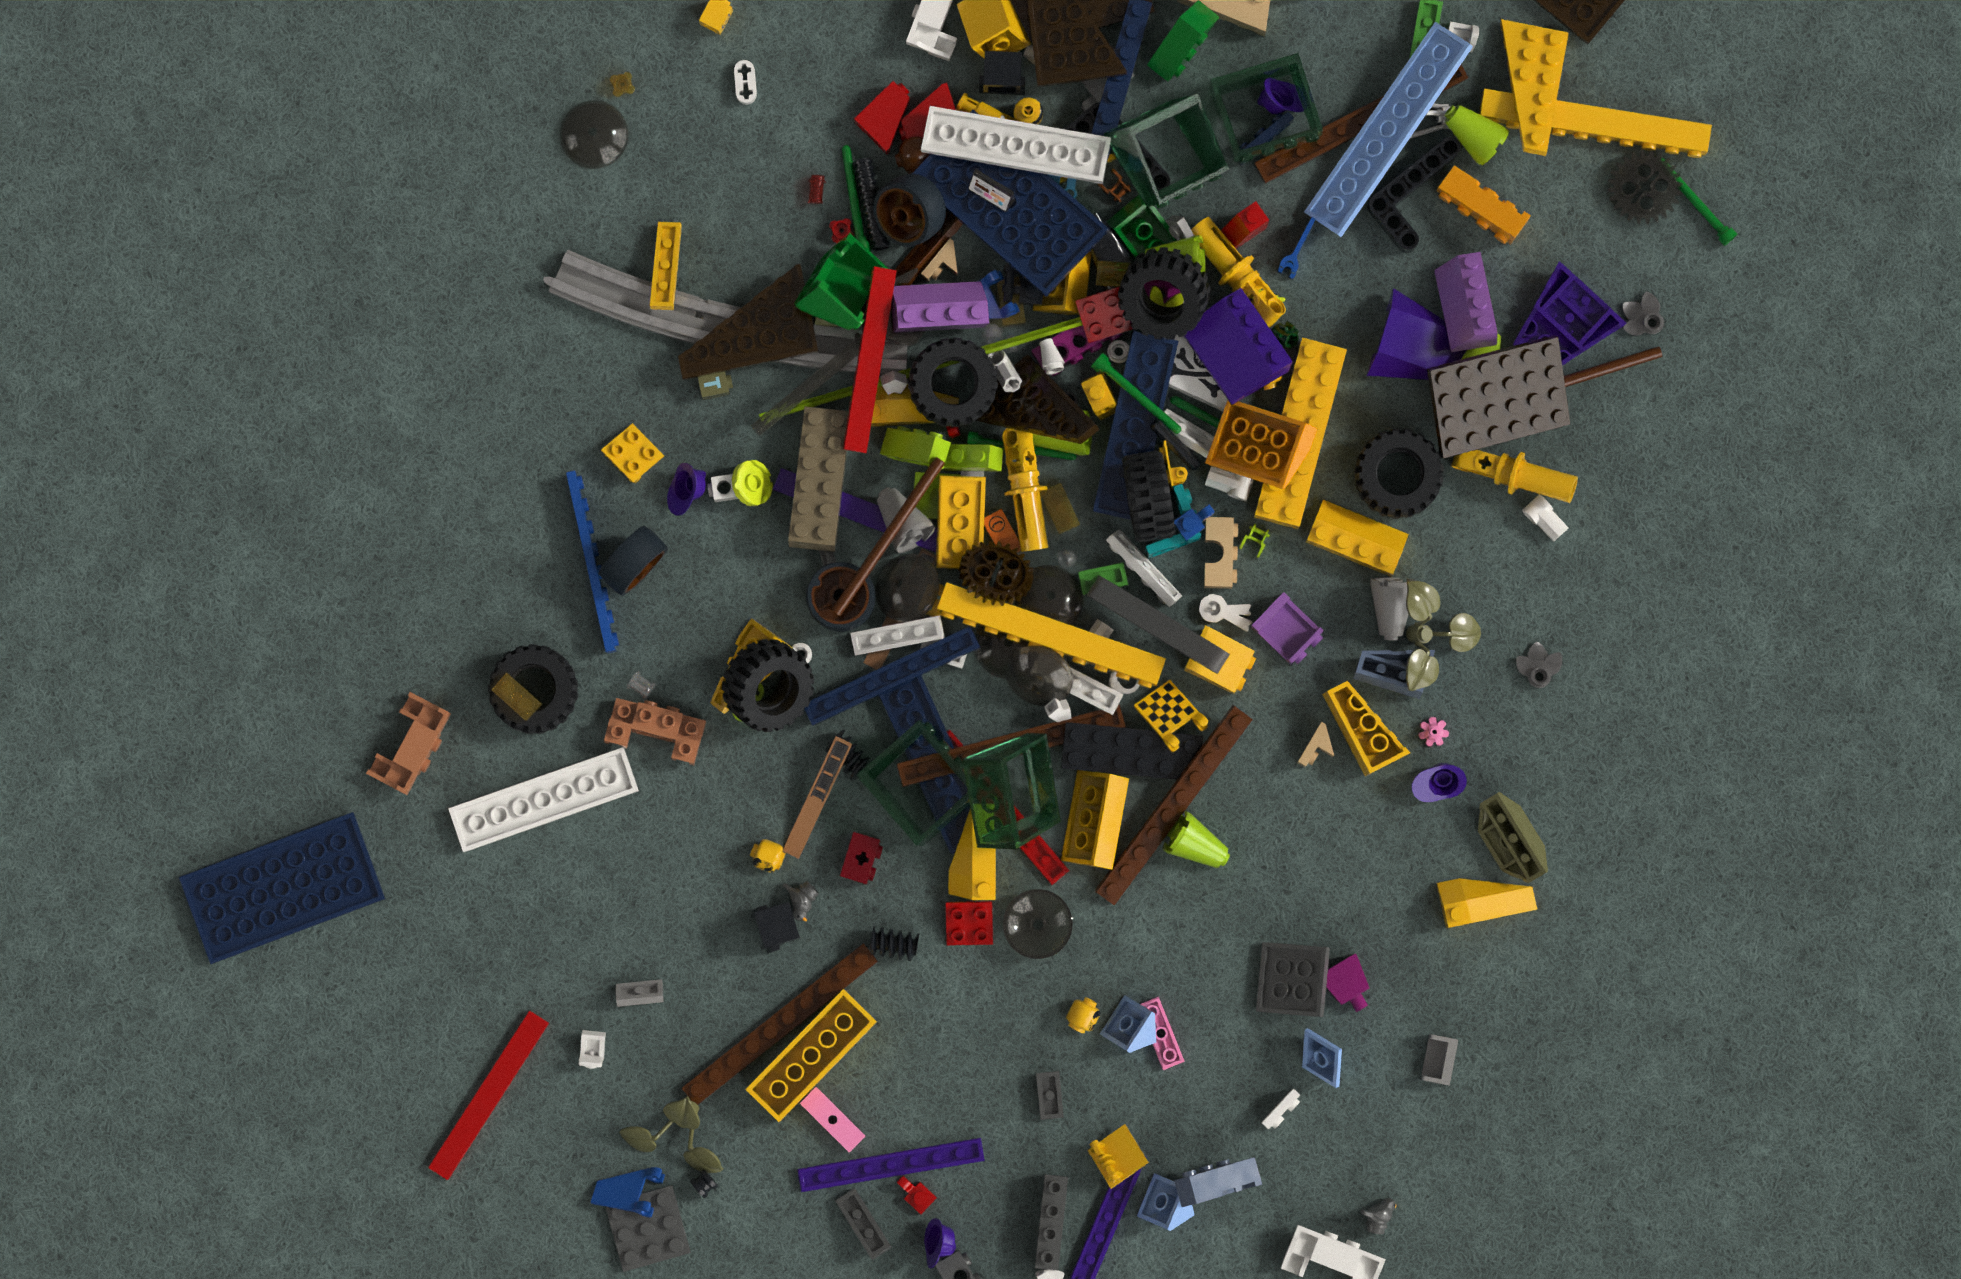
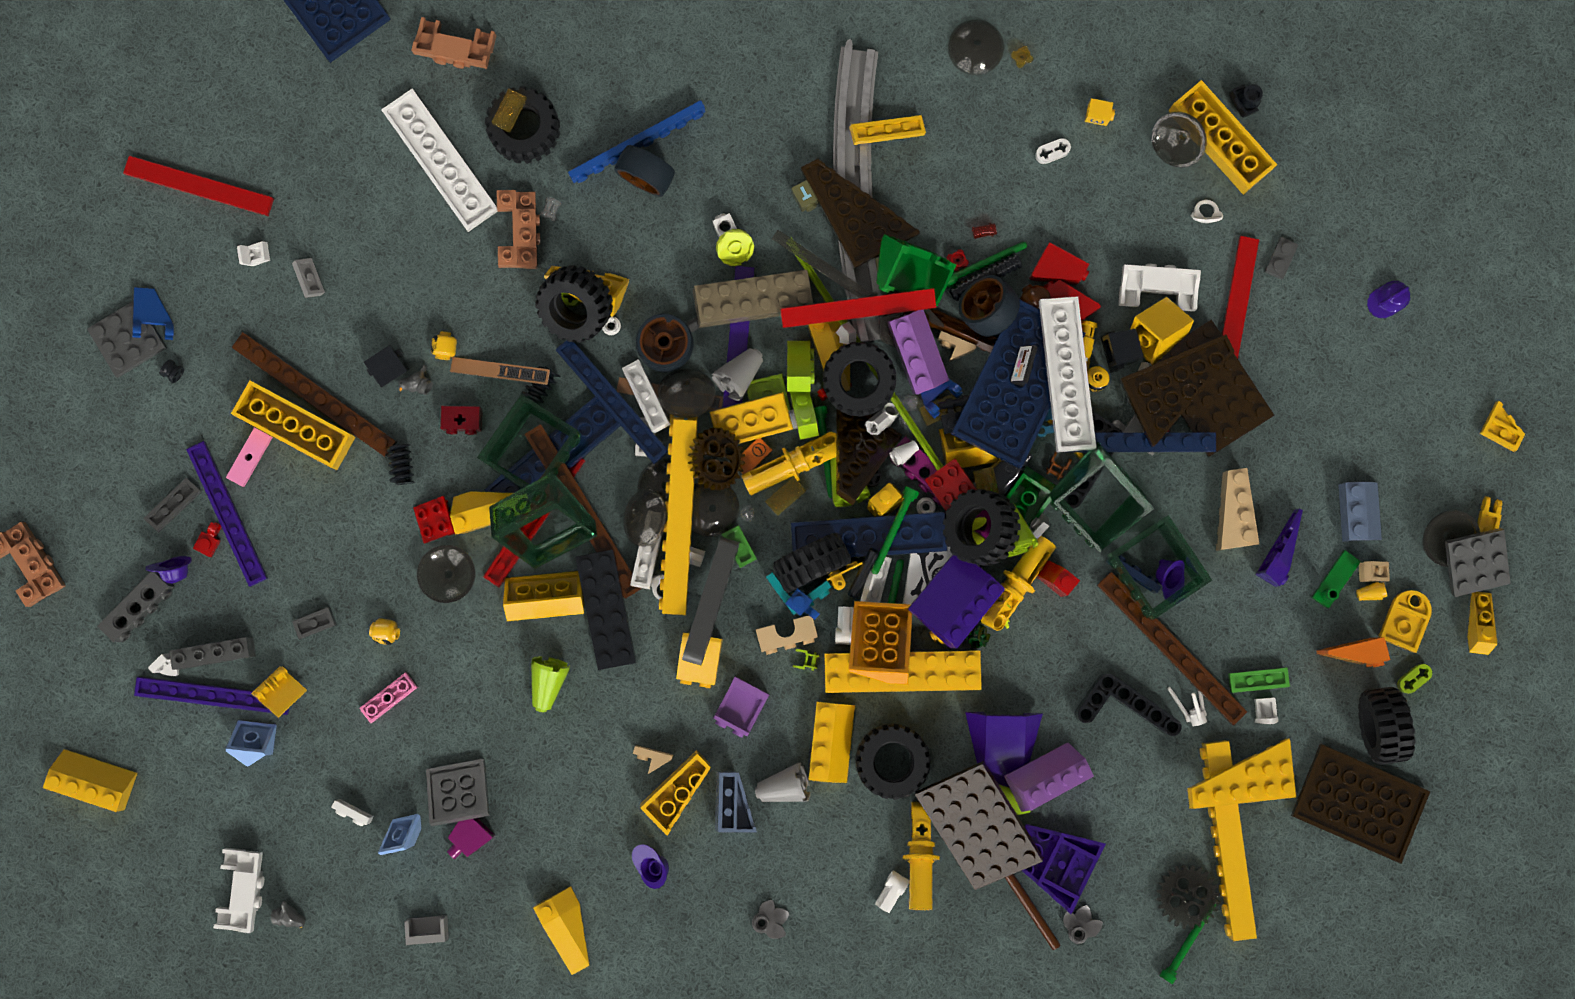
camera: 70 degrees right, 0 degrees up
(632, 453) = (732, 148): yellow hinge -> none
(685, 487) = (717, 198): dark purple piece -> none
(685, 1115) = (213, 338): olive plant -> none
(888, 536) = (720, 363): reddish brown piece -> none
(1058, 710) = (621, 540): white piece -> none
(1130, 1026) = (385, 671): light blue slope -> none
(1144, 568) = (757, 577): white plate -> none
(1167, 711) = (647, 629): yellow flag -> none
(1173, 805) = (573, 655): reddish brown plate -> none
(1182, 41) = (1192, 484): green wedge -> none
(1214, 608) = (741, 643): white piece -> none
(1217, 1181) = (275, 776): sand blue wedge -> none
(1291, 260) = (1039, 623): blue flag -> none
(1388, 129) = (1172, 672): light blue plate -> none
(1429, 727) = (695, 846): bright pink plant -> none
(1464, 634) = (778, 851): olive plant -> none
(1475, 132) = (1190, 744): lime cone -> none
(1482, 205) = (1132, 767): light orange wedge -> none
(1511, 838) = (621, 939): olive wedge -> none

